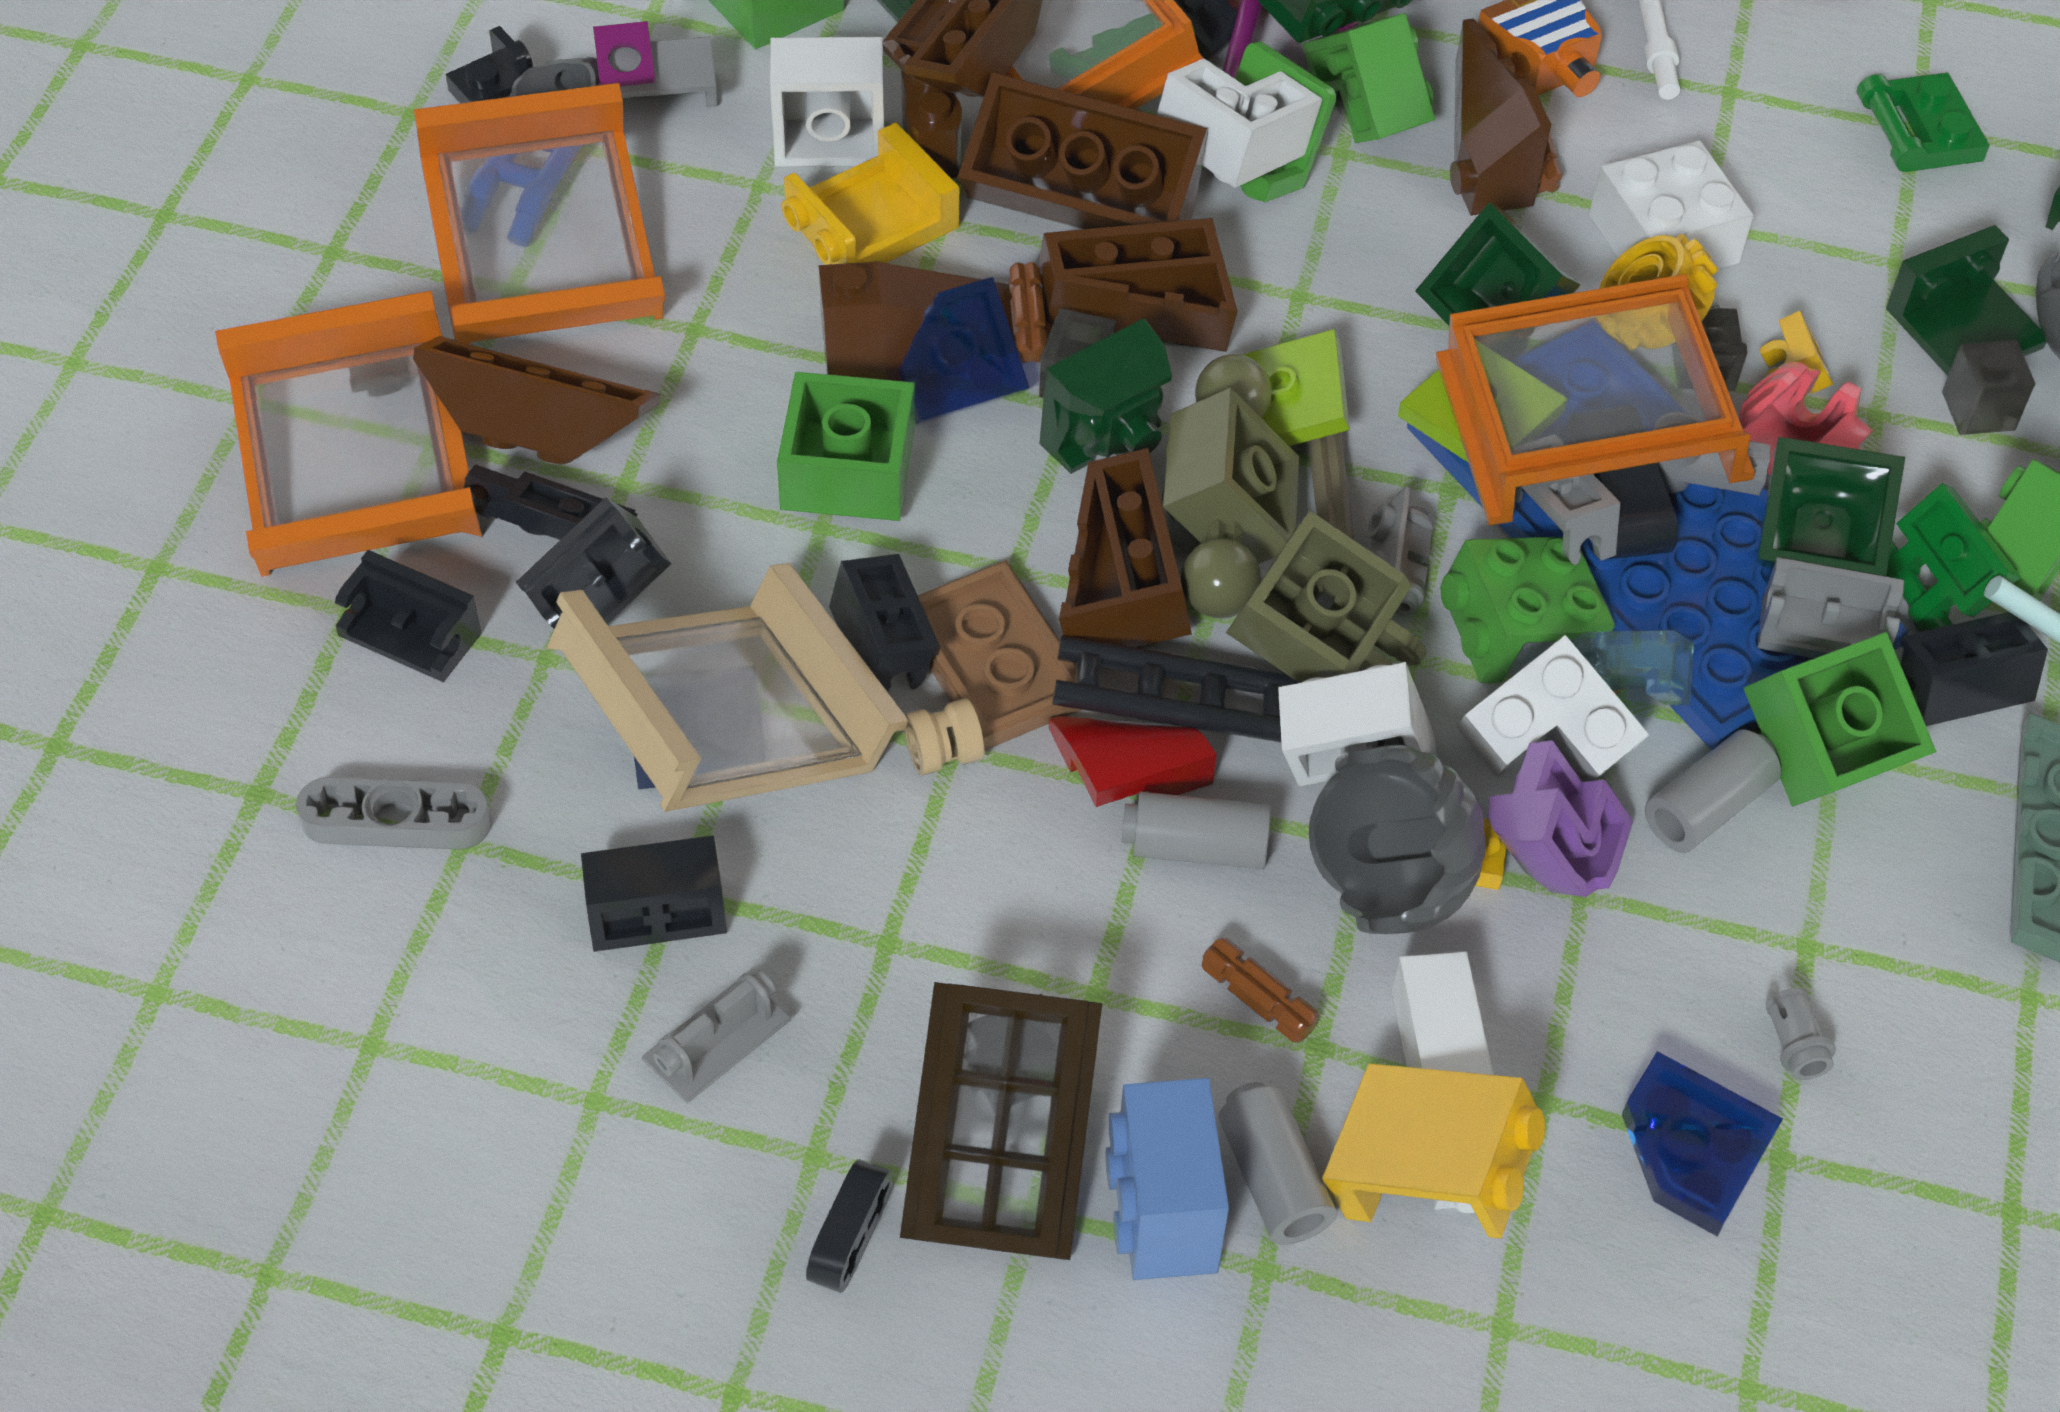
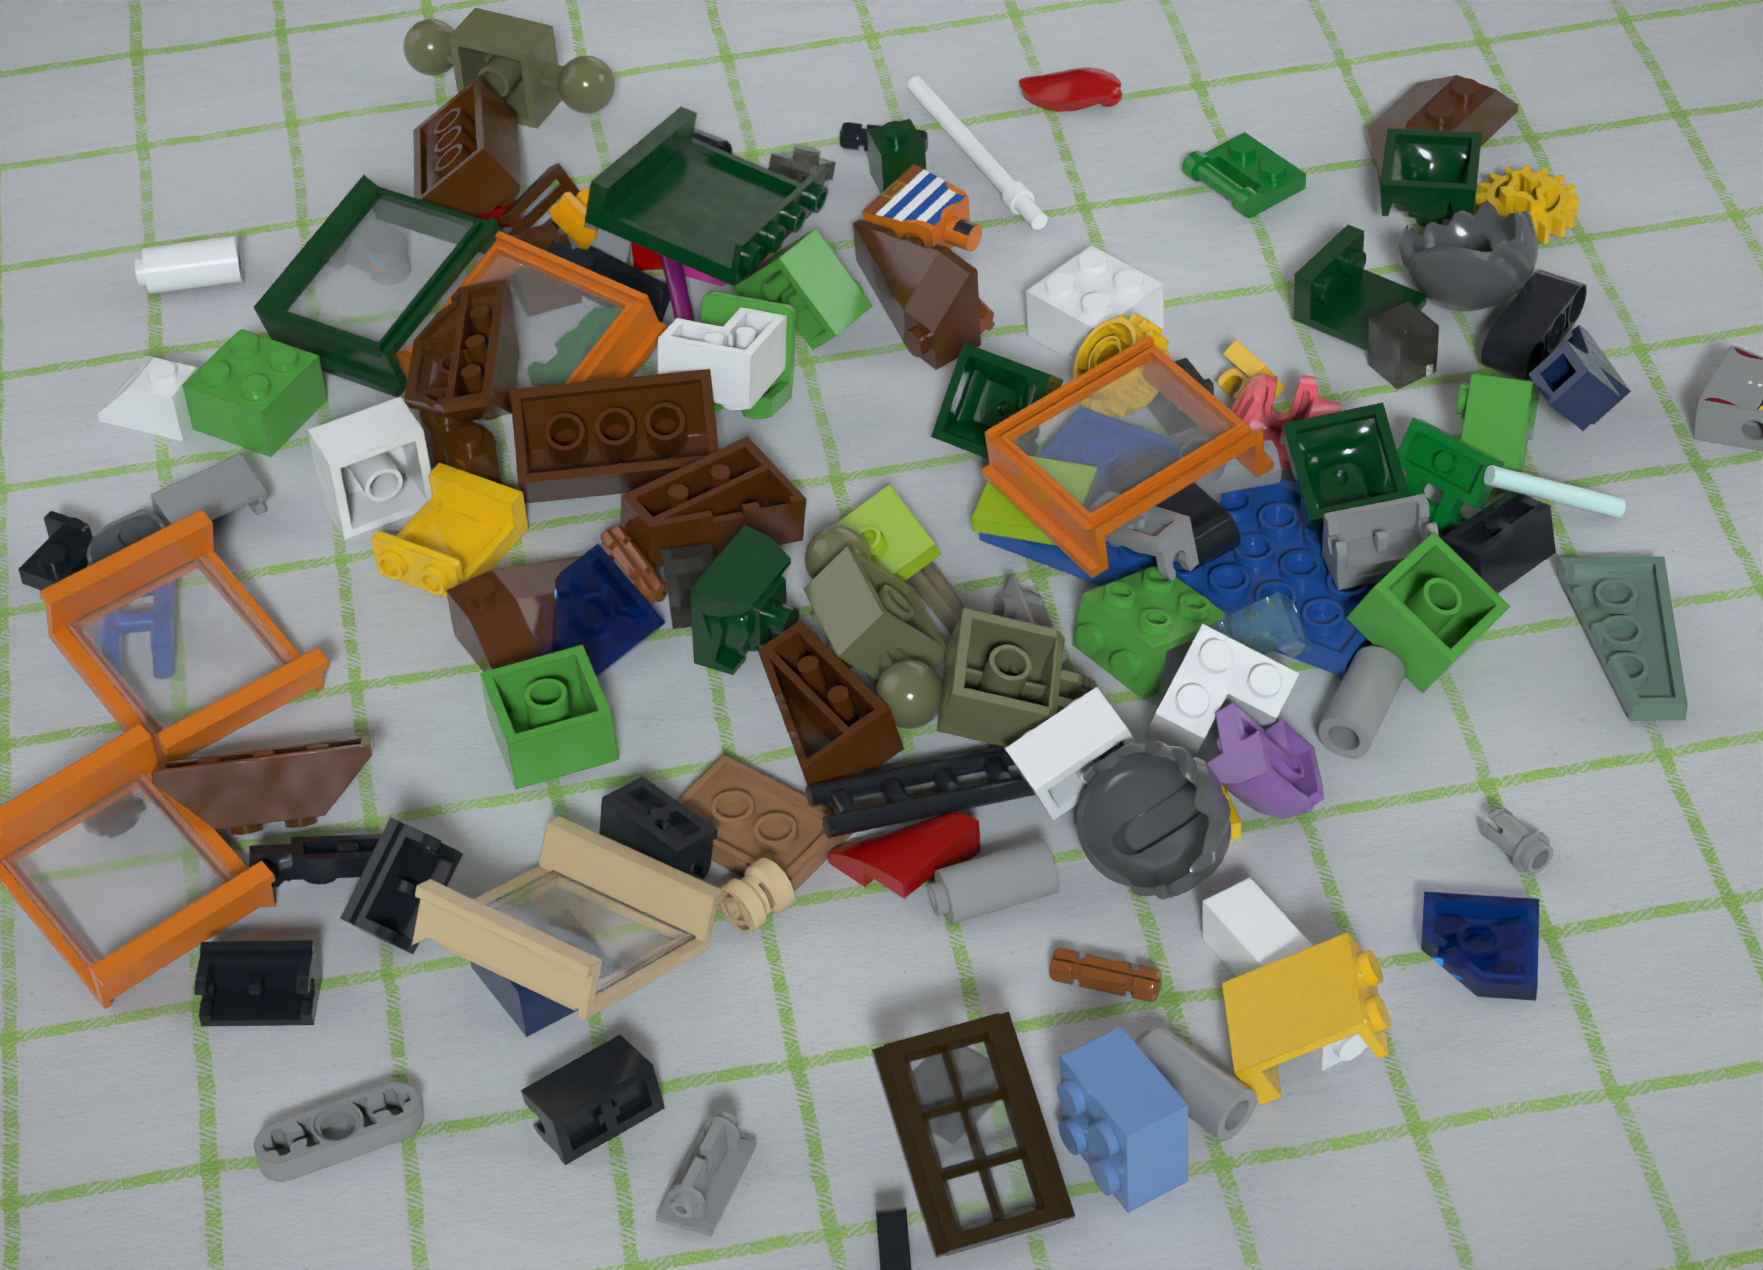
camera: 20 degrees left, 10 degrees down
(630, 35) = (157, 484): magenta bracket -> none

